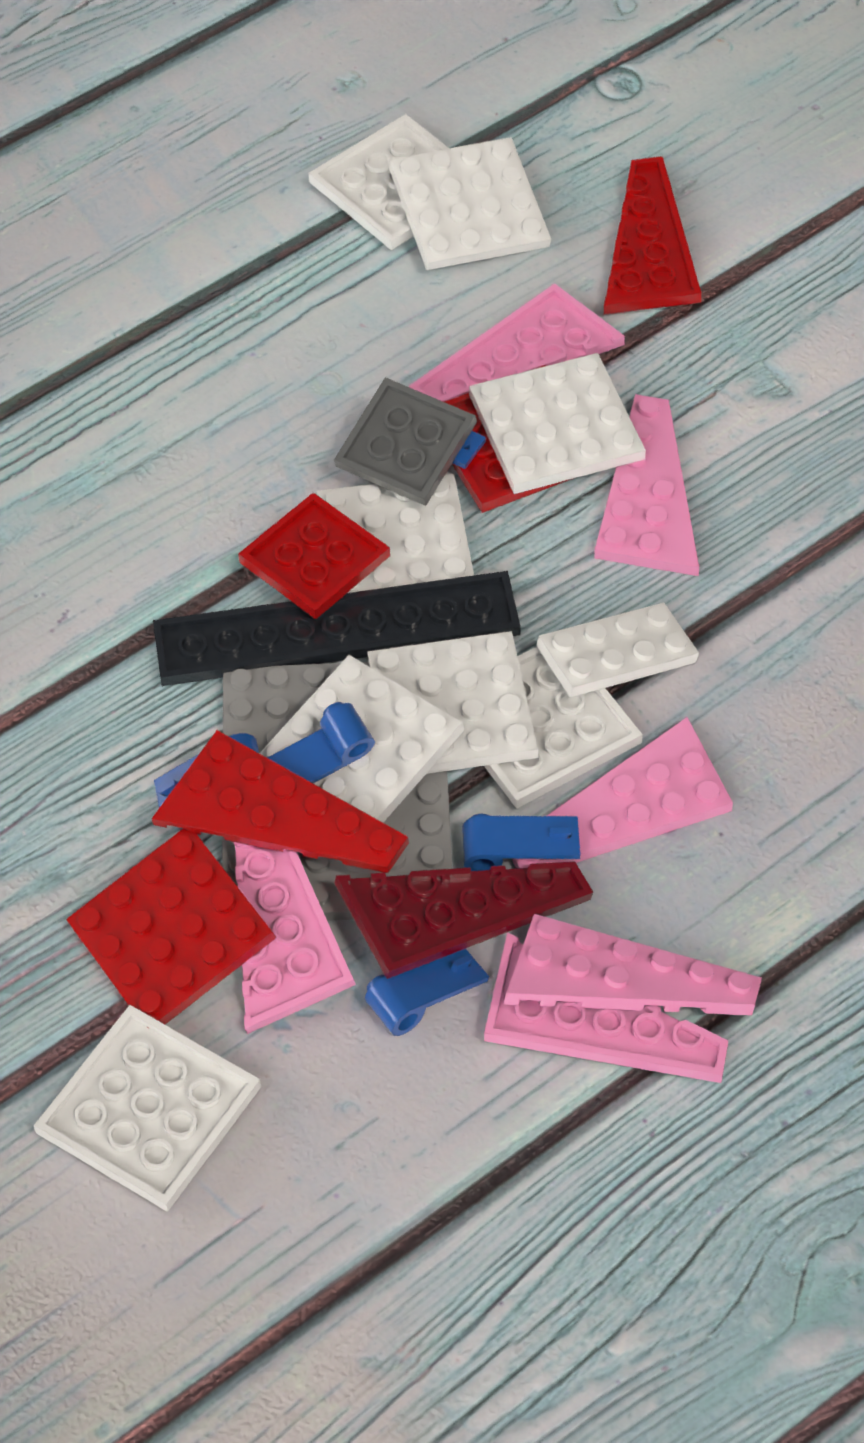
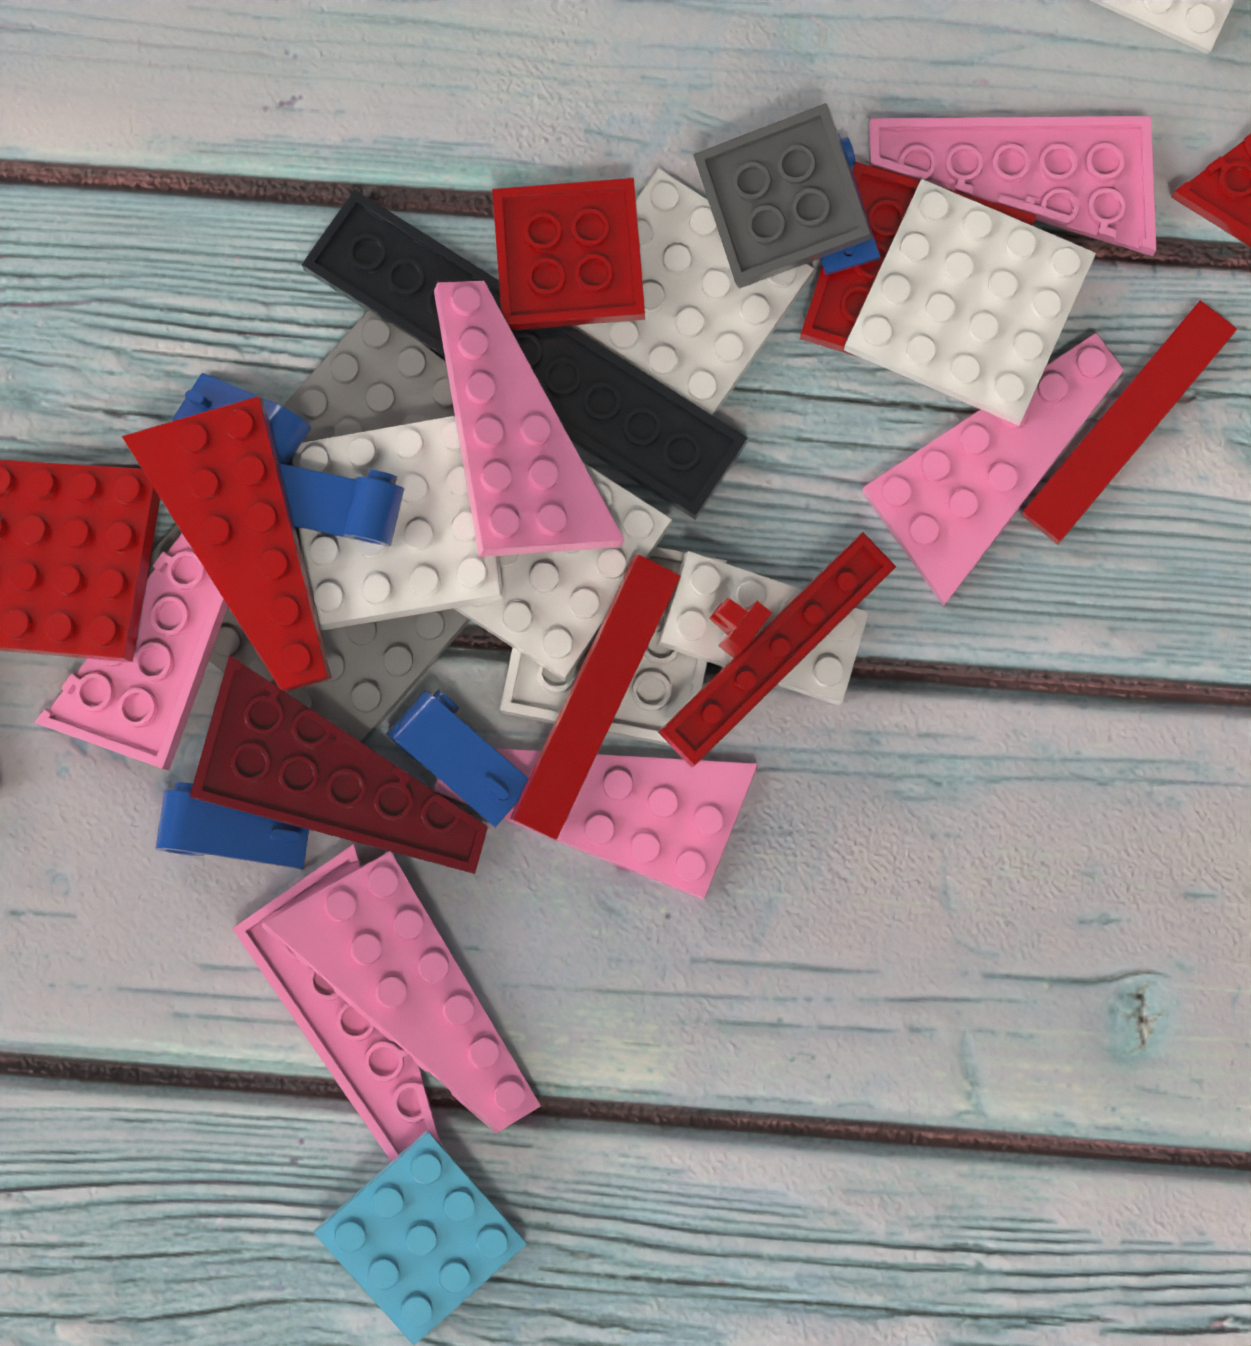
camera: 45 degrees right, 25 degrees up
(400, 656) = (516, 456): none -> bright pink wing
(567, 745) = (595, 697): none -> red tile
(608, 640) = (739, 624): none -> red tile
(639, 646) = (776, 649): none -> red tile
(697, 424) = (1128, 422): none -> red tile
(772, 1099) = (420, 1237): none -> medium azure plate

